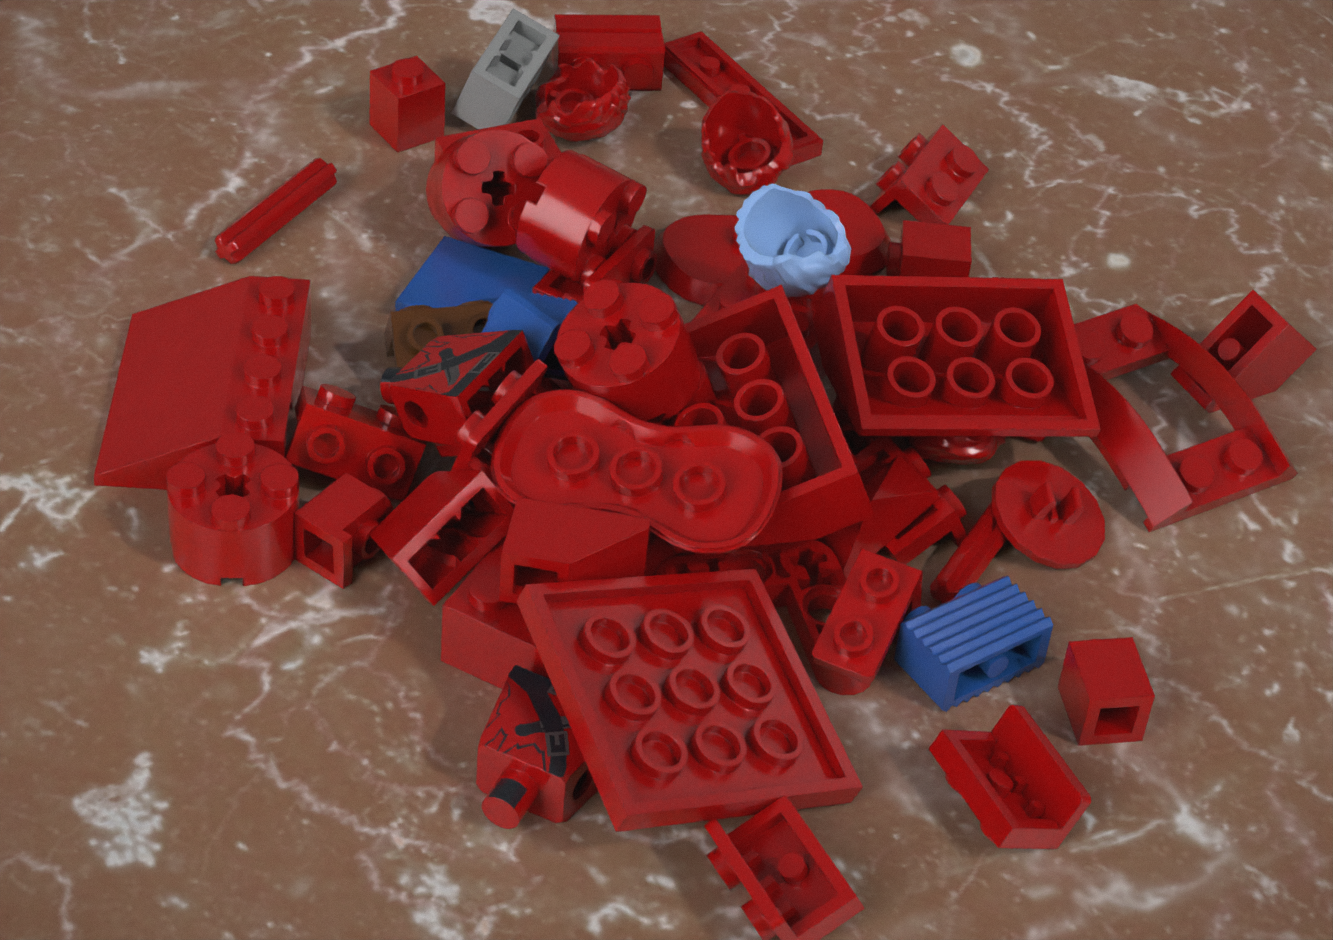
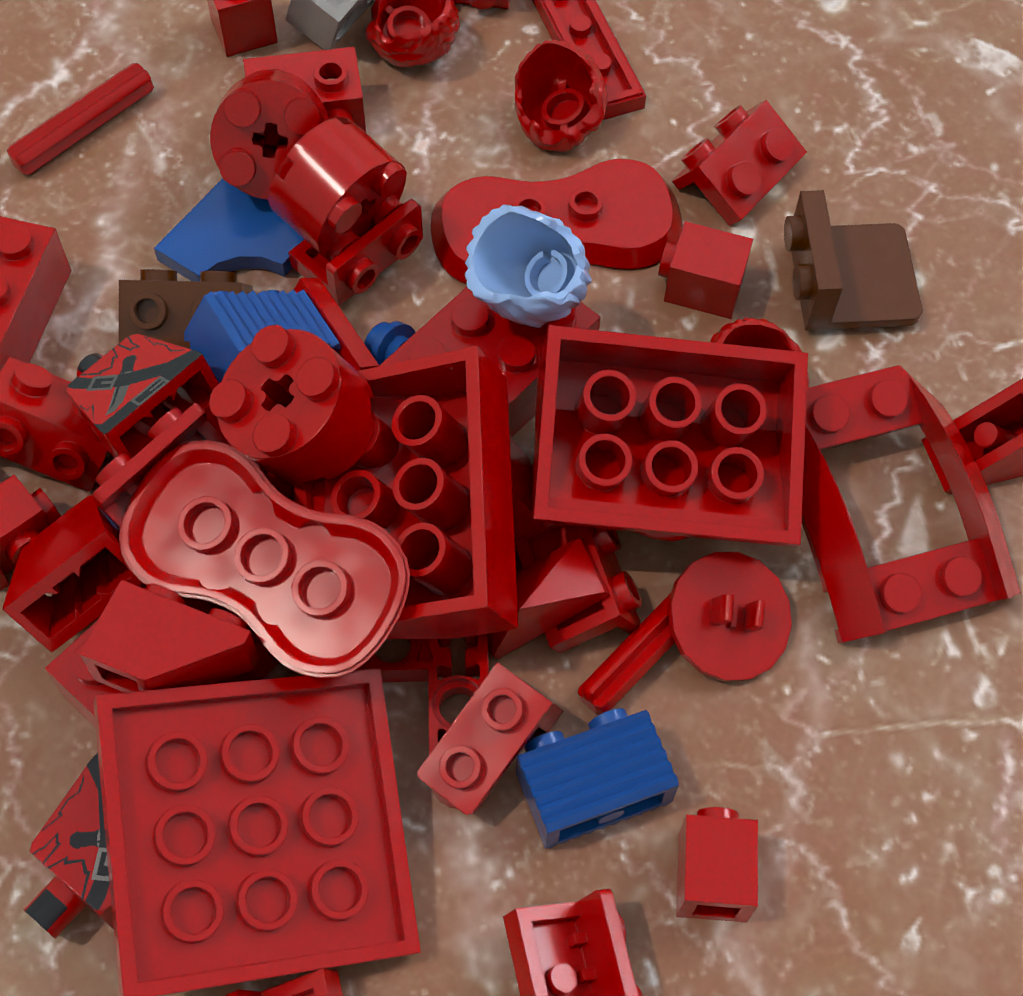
camera: 15 degrees right, 20 degrees up
(1061, 247) = (849, 271): none -> reddish brown bracket

